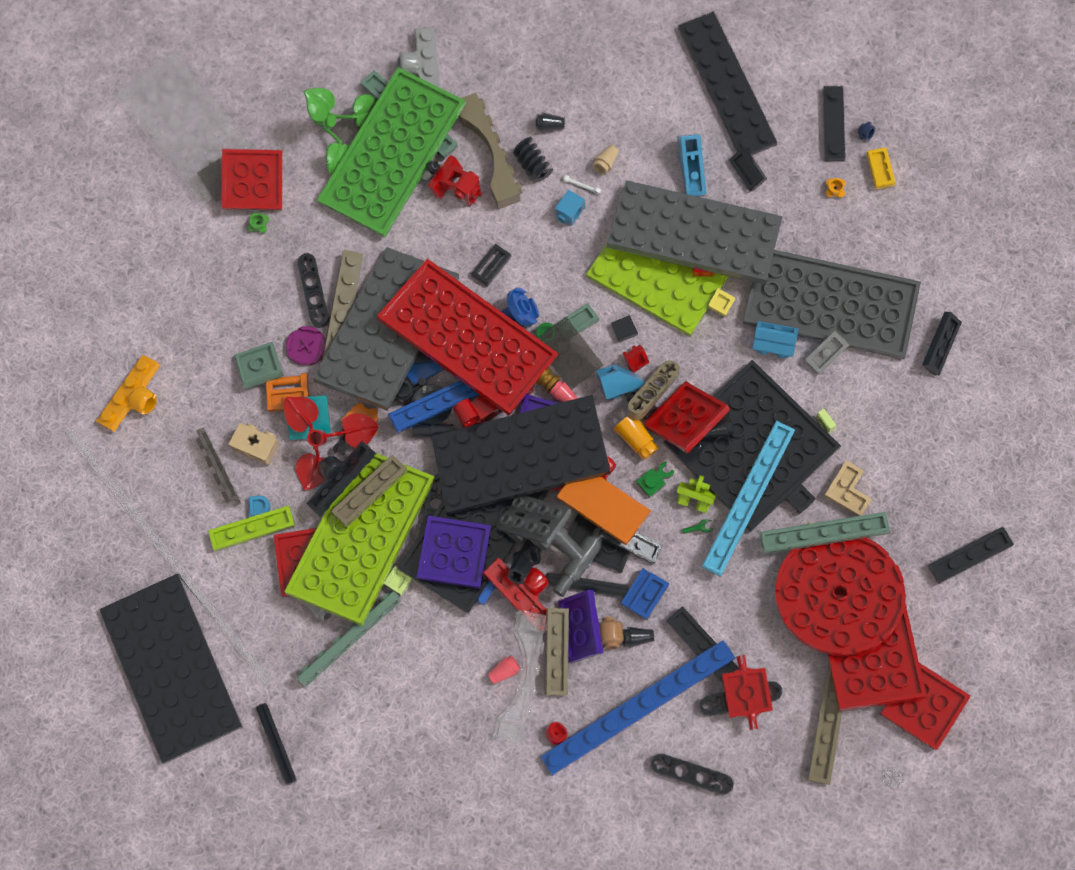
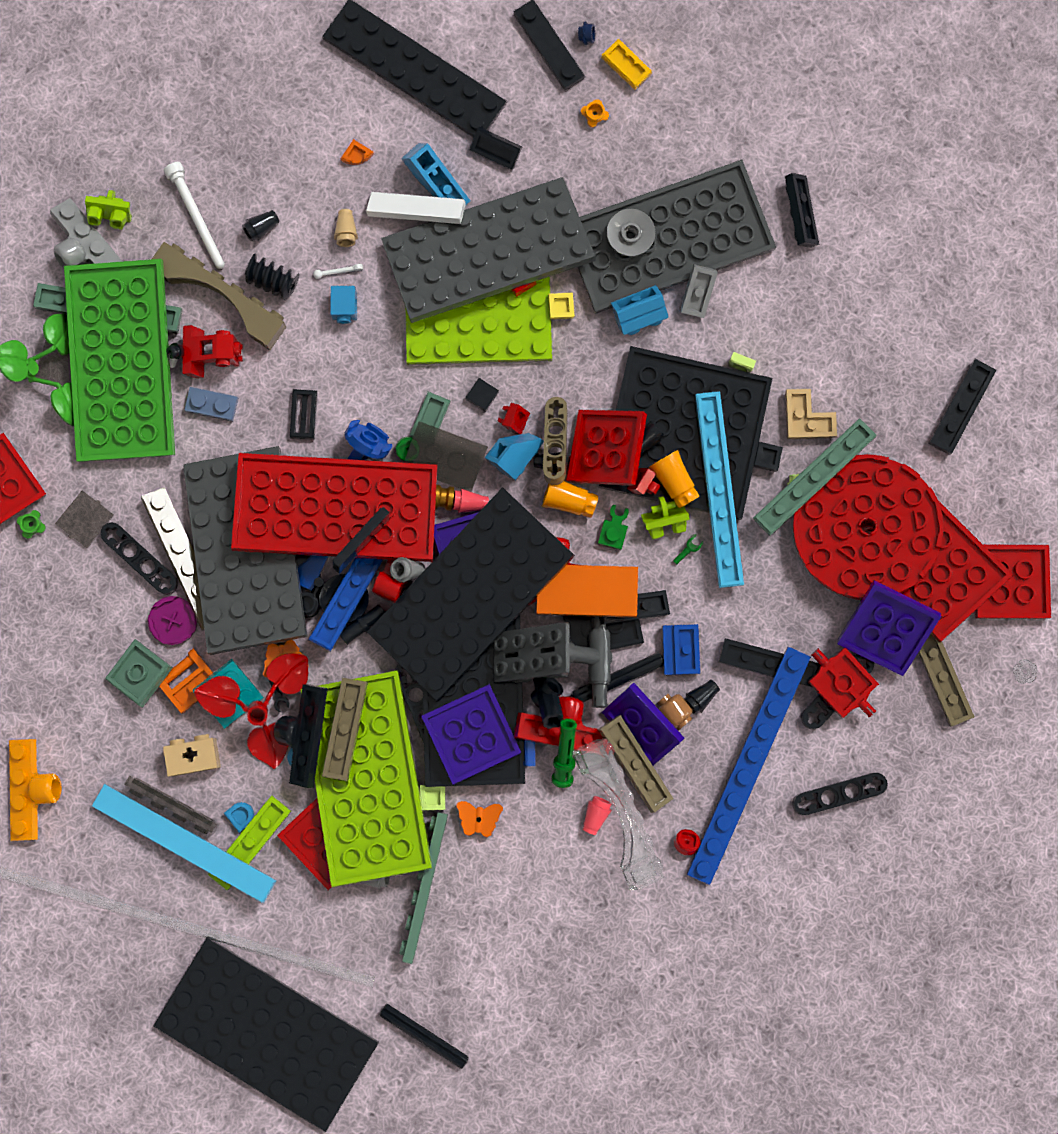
camera: 45 degrees left, 10 degrees up
(208, 499) = (184, 843): none -> medium azure tile
(295, 242) = (84, 519): none -> clear smoke piece
(414, 610) = (488, 816): none -> orange animal
(433, 219) = (211, 404): none -> sand blue plate
(454, 49) = (108, 208): none -> lime hips
(468, 366) = (360, 540): none -> black tile
(486, 408) = (406, 569): none -> light grey cone
(507, 614) = (564, 761): none -> green pin
(515, 55) = (175, 173): none -> white piece
(648, 115) = (356, 153): none -> orange tile
(664, 174) = (416, 207): none -> white tile
(696, 457) = (644, 482): none -> red tile
(720, 468) = (675, 479): none -> light orange plant
(804, 272) = (631, 221): none -> light grey dish
(806, 673) = (888, 628): none -> dark purple plate

